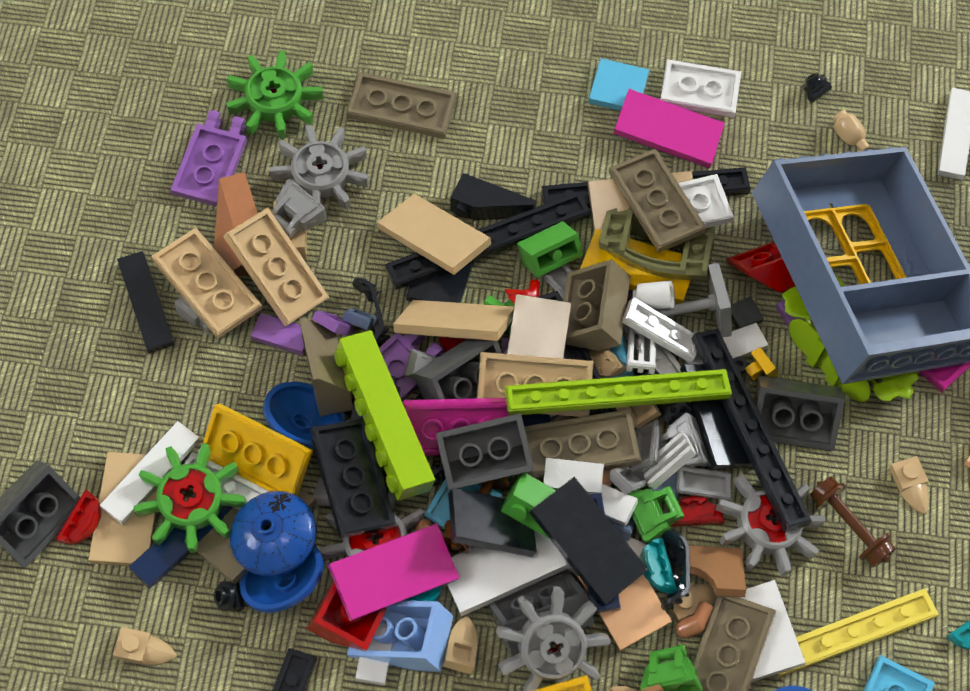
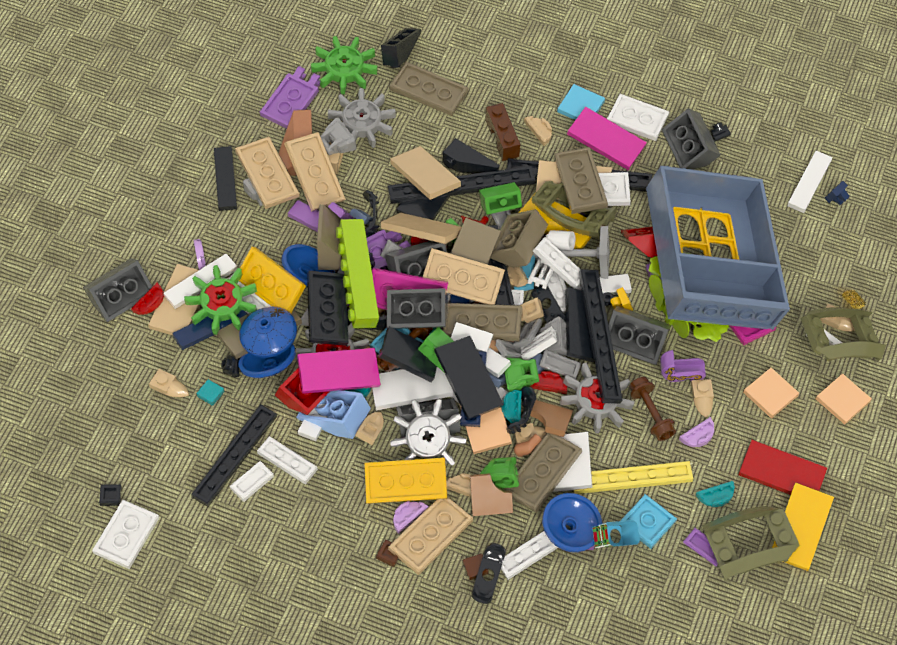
camera: 15 degrees right, 5 degrees down
(138, 429) = (199, 253): none -> lavender tile
(208, 645) = (210, 392): none -> teal tile
(345, 53) = (399, 47): none -> black slope
(515, 135) = (500, 124): none -> reddish brown arch
(572, 132) = (540, 128): none -> tan tile
(617, 392) = (516, 292): lime tile -> none
(745, 313) = (622, 266): pearl dark grey tile -> none
(783, 109) = (691, 140): none -> dark grey slope
(850, 130) = (733, 163): tan plant -> none
(873, 451) = (681, 369): none -> medium lavender animal
(926, 543) = (699, 435): none -> lavender tile

